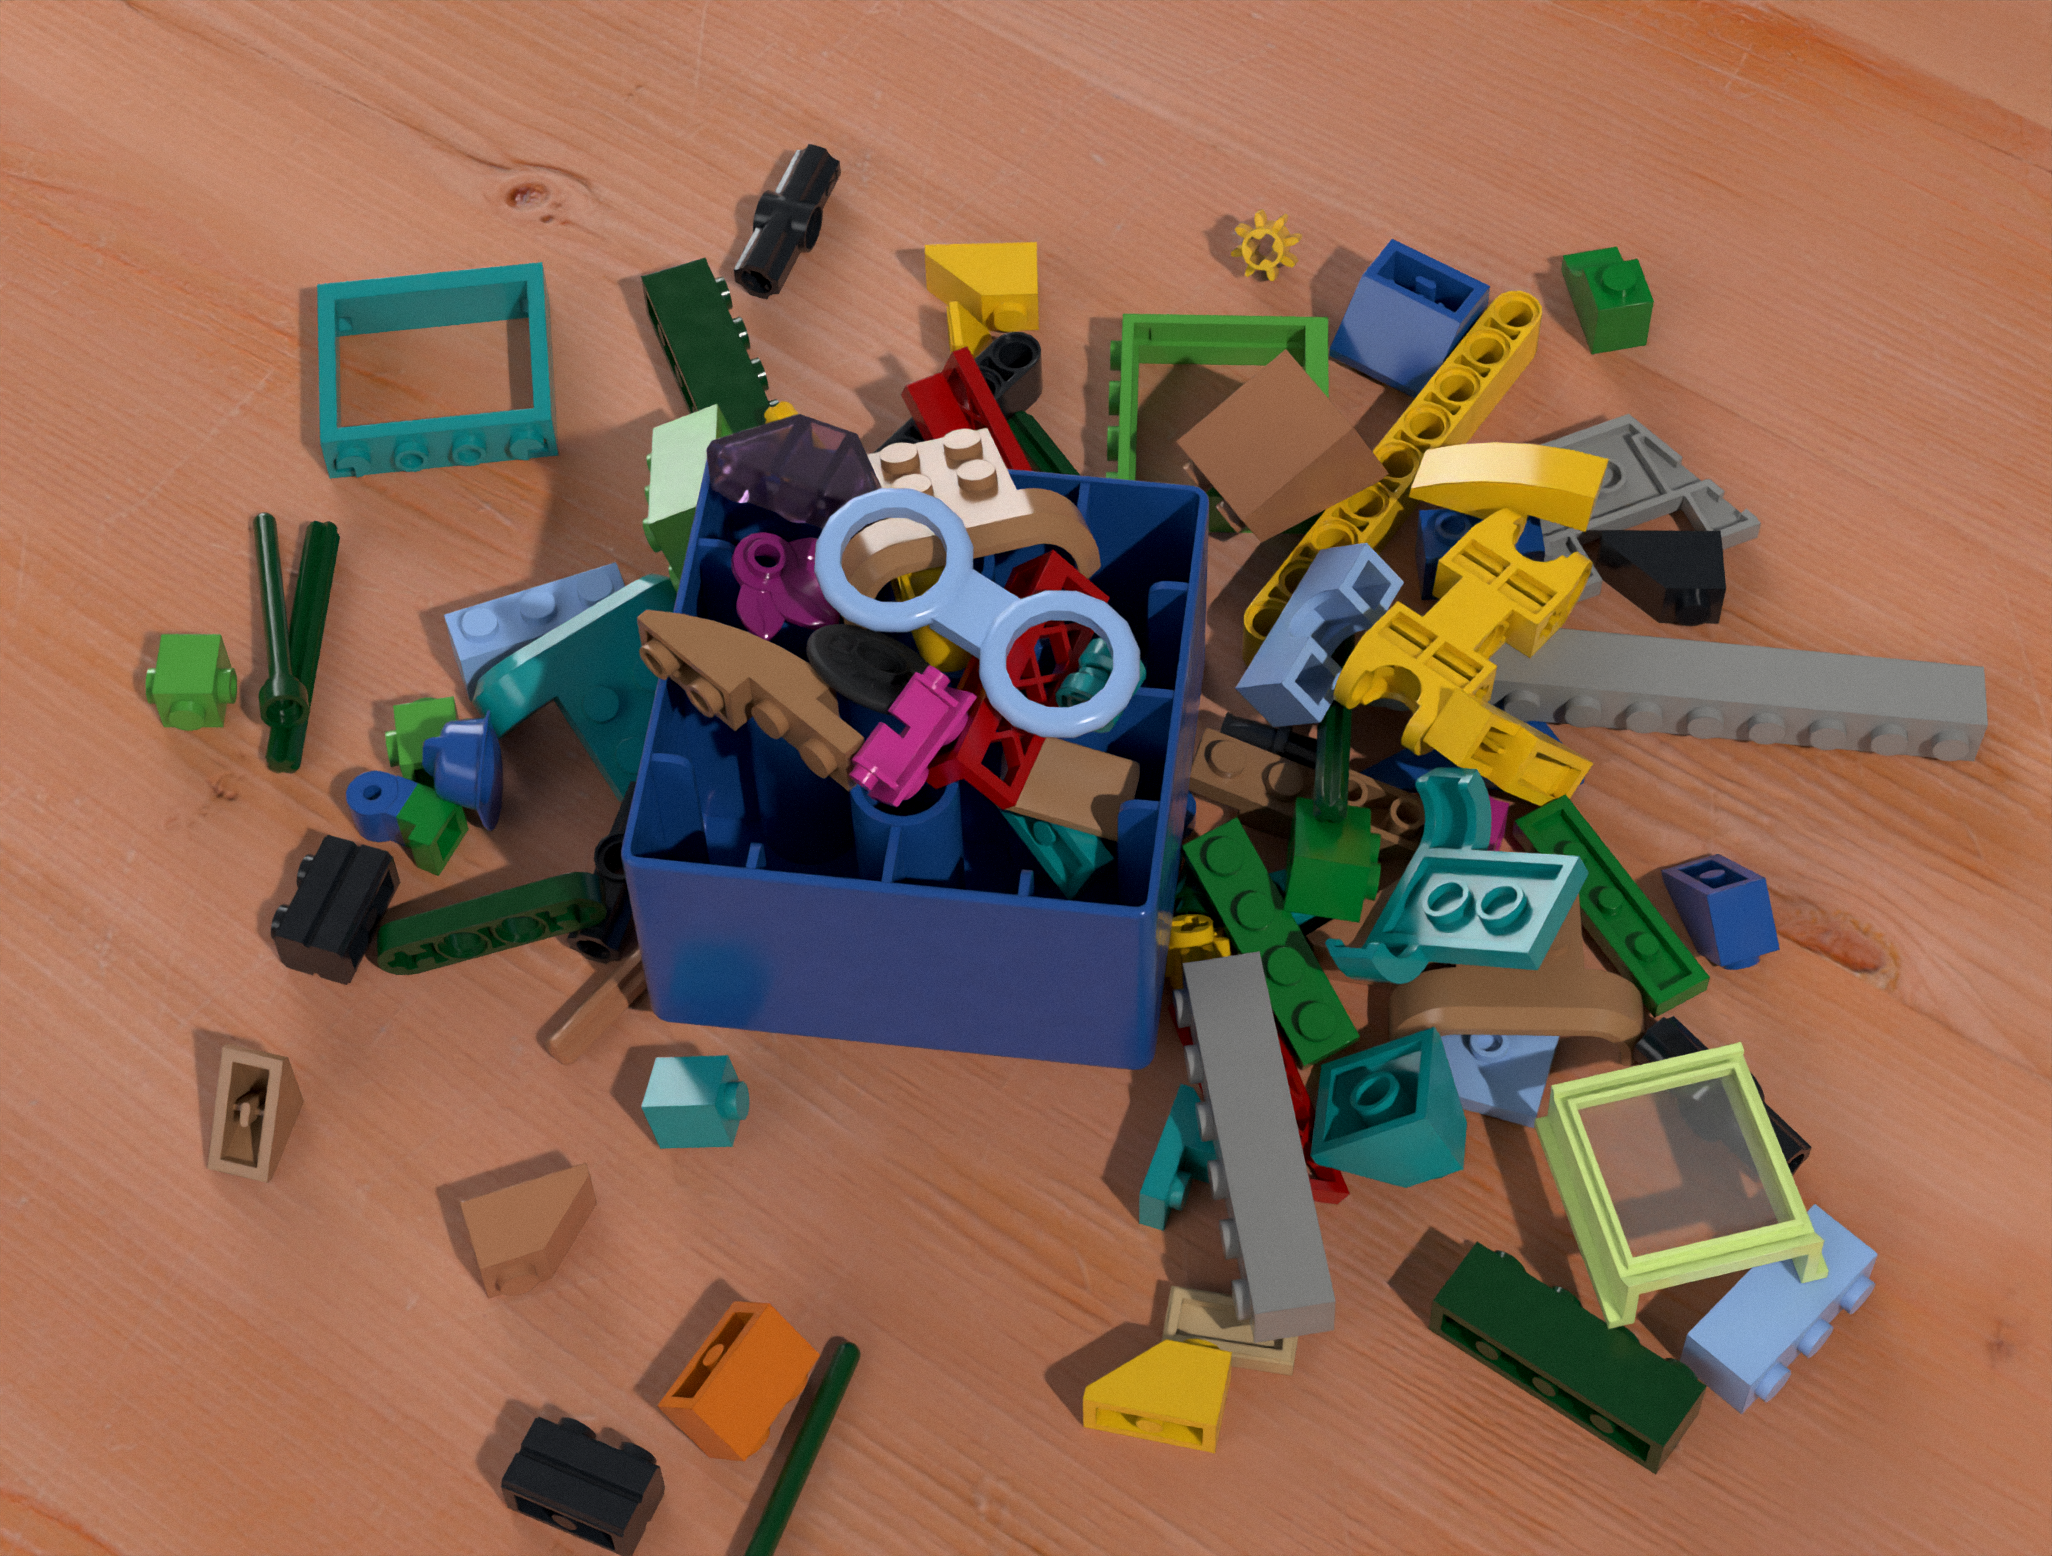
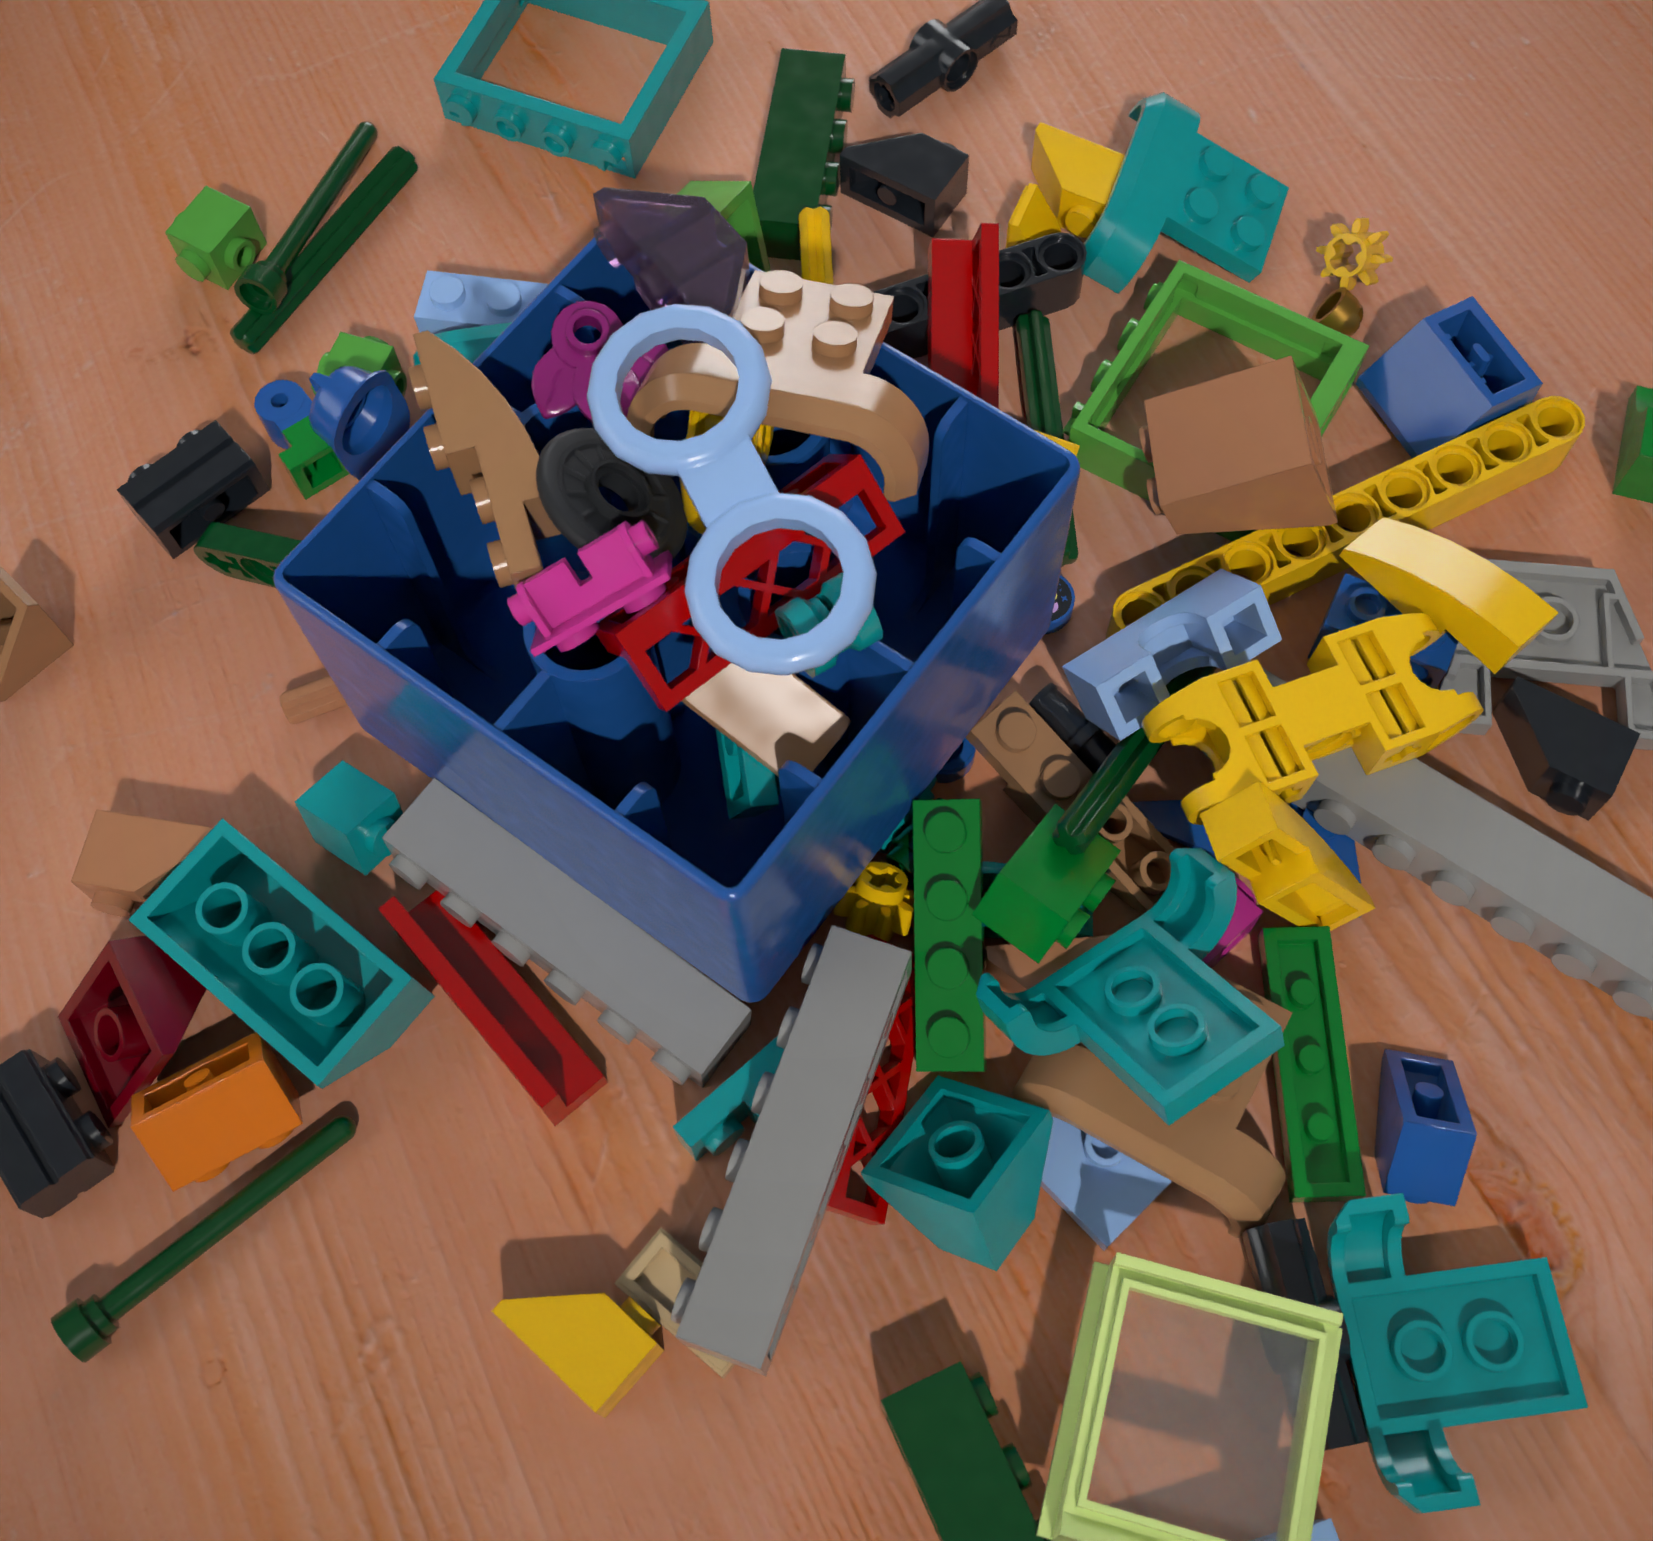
camera: 30 degrees right, 10 degrees up
(608, 1357) = (128, 1020): none -> dark red slope
(712, 1227) = (280, 957): none -> teal slope
(826, 347) = (907, 179): none -> black slope
(913, 1192) = (498, 1006): none -> red fence
(945, 1099) = (567, 933): none -> light grey brick
(1088, 251) = (1188, 191): none -> teal piece
(1281, 299) = (1340, 312): none -> pearl gold hinge
(1827, 1053) = (1442, 1350): none -> teal piece

